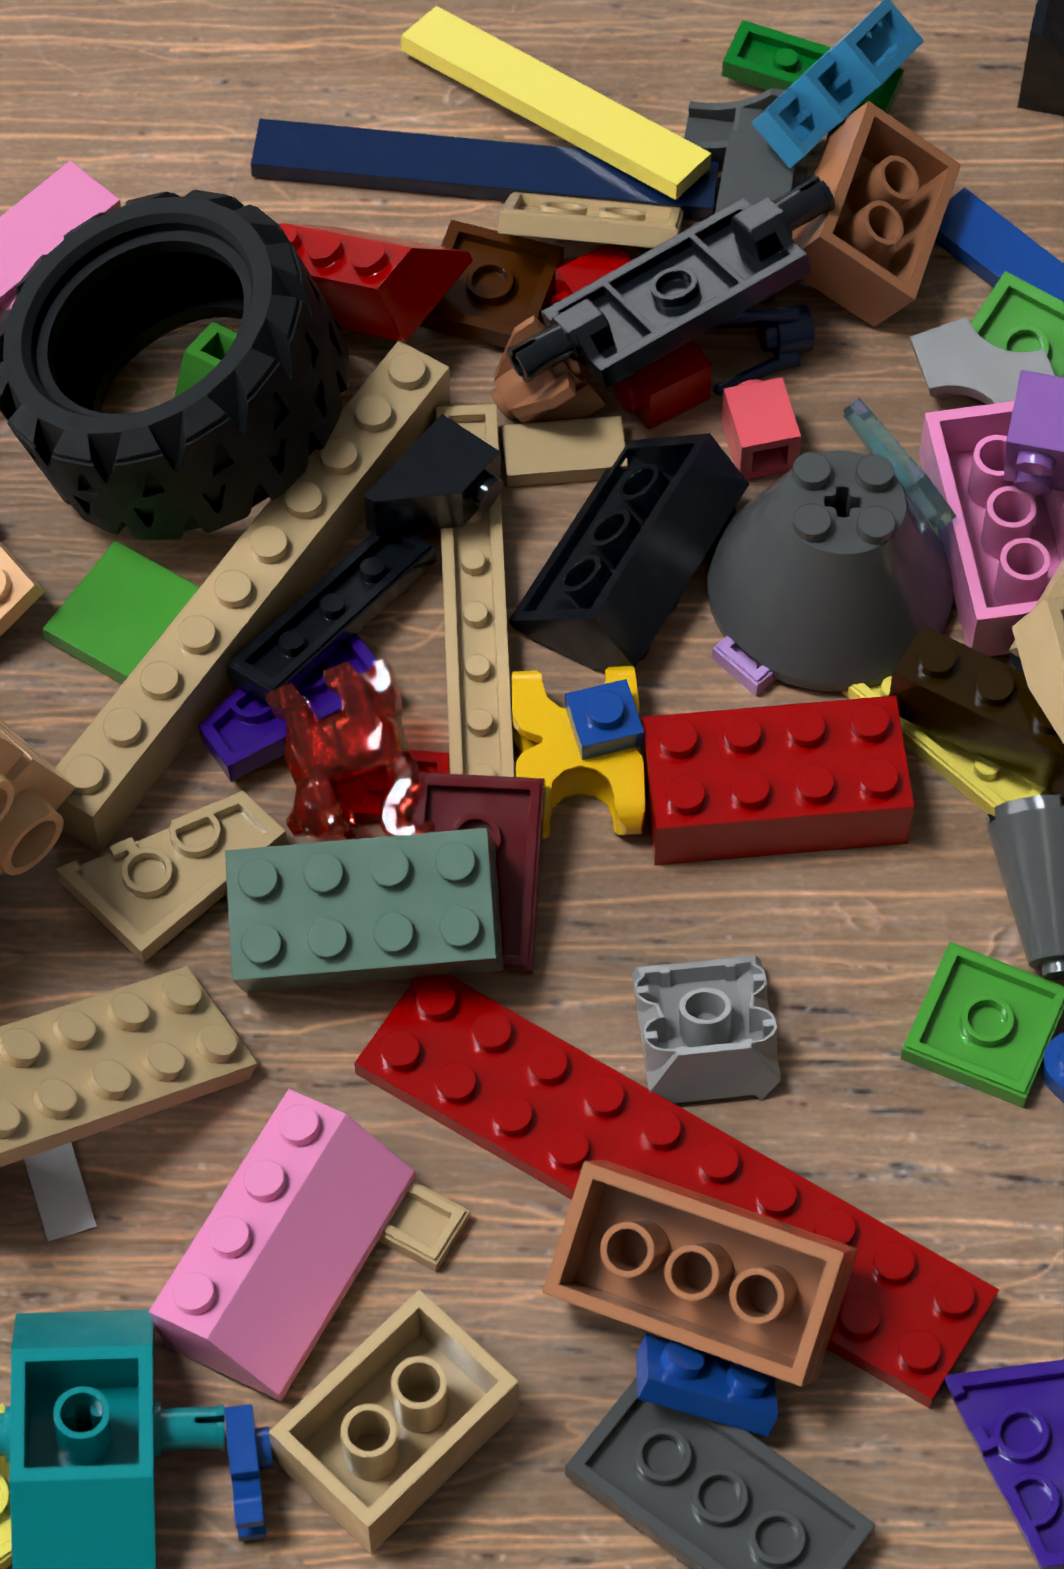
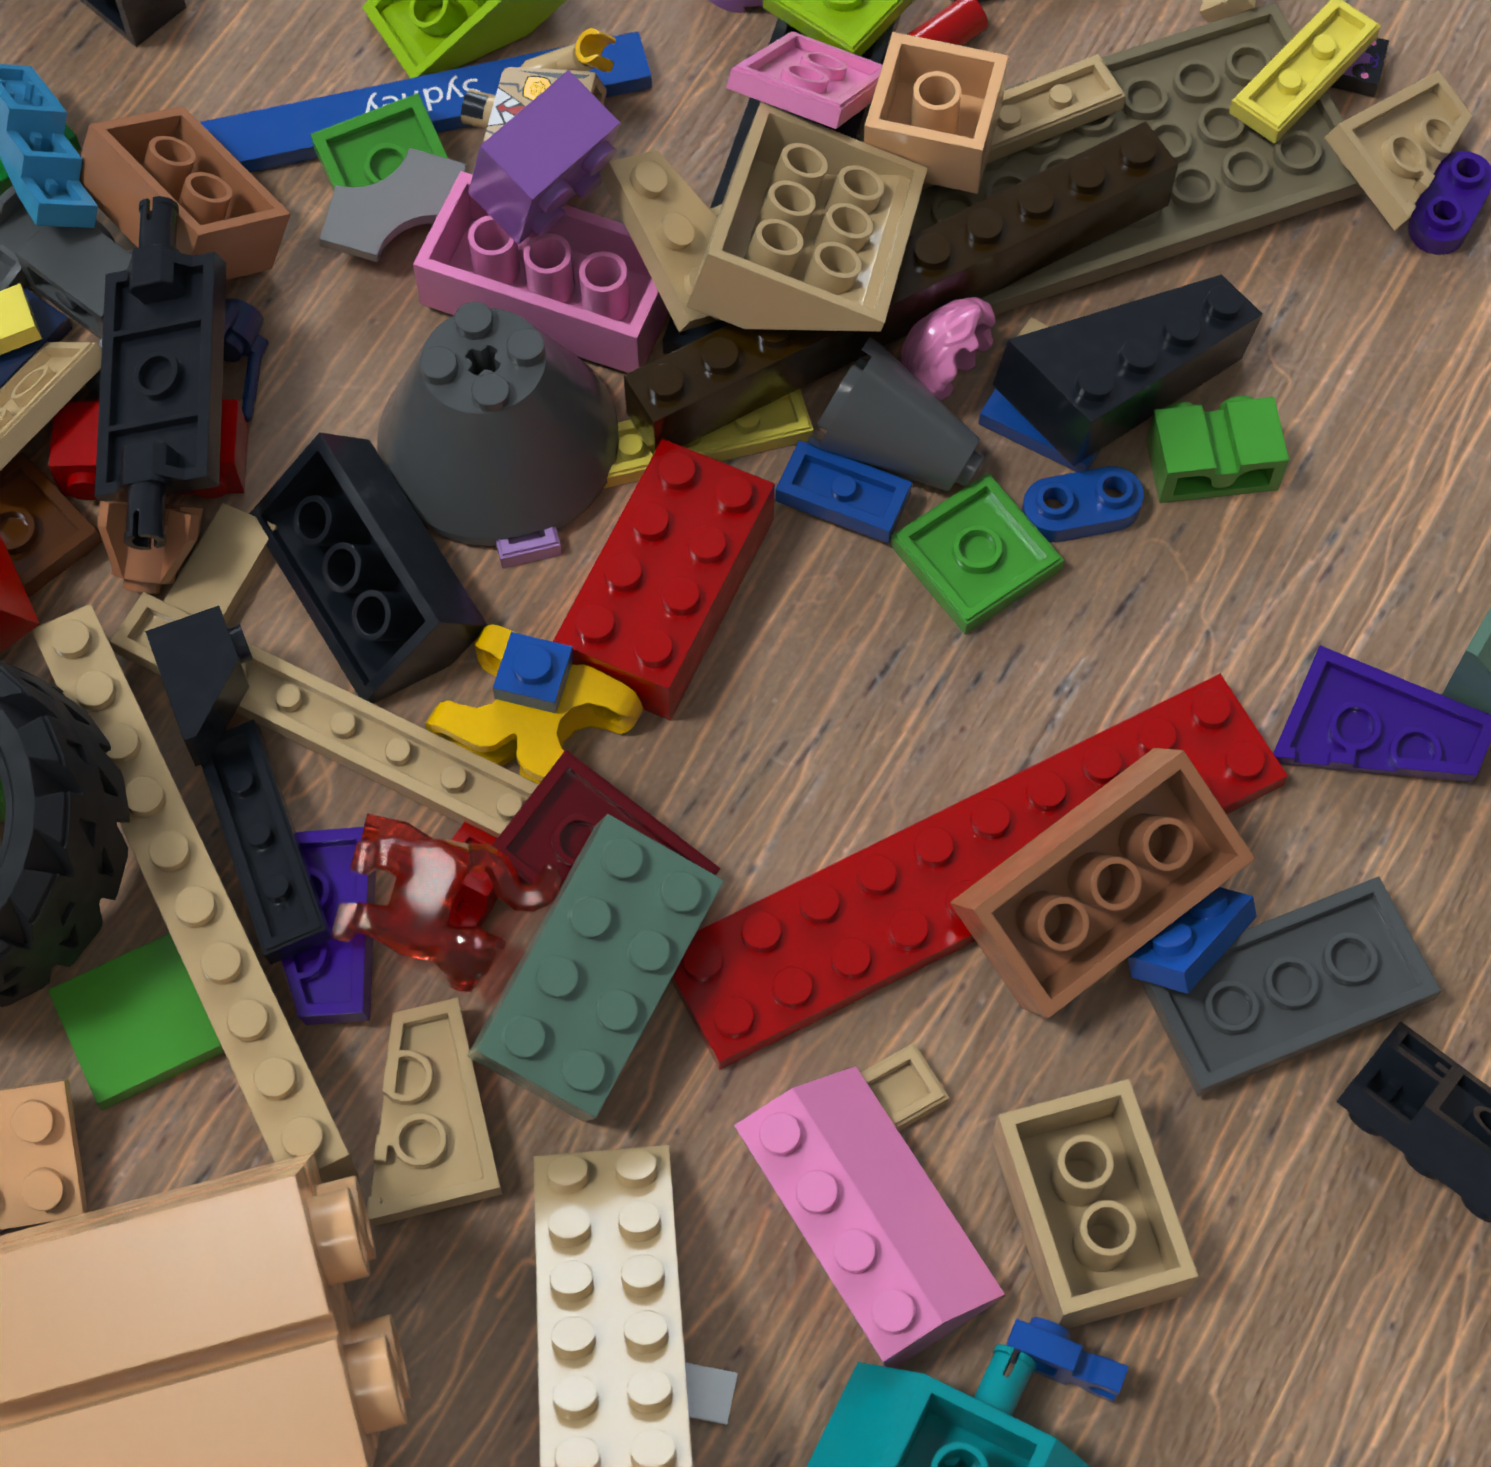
camera: 60 degrees left, 5 degrees up
(707, 1029) = (857, 760): light grey slope -> none
(760, 427) = (315, 399): coral brick -> none
(909, 473) = (424, 314): clear light blue tile -> none
(965, 879) = (843, 491): none -> blue plate

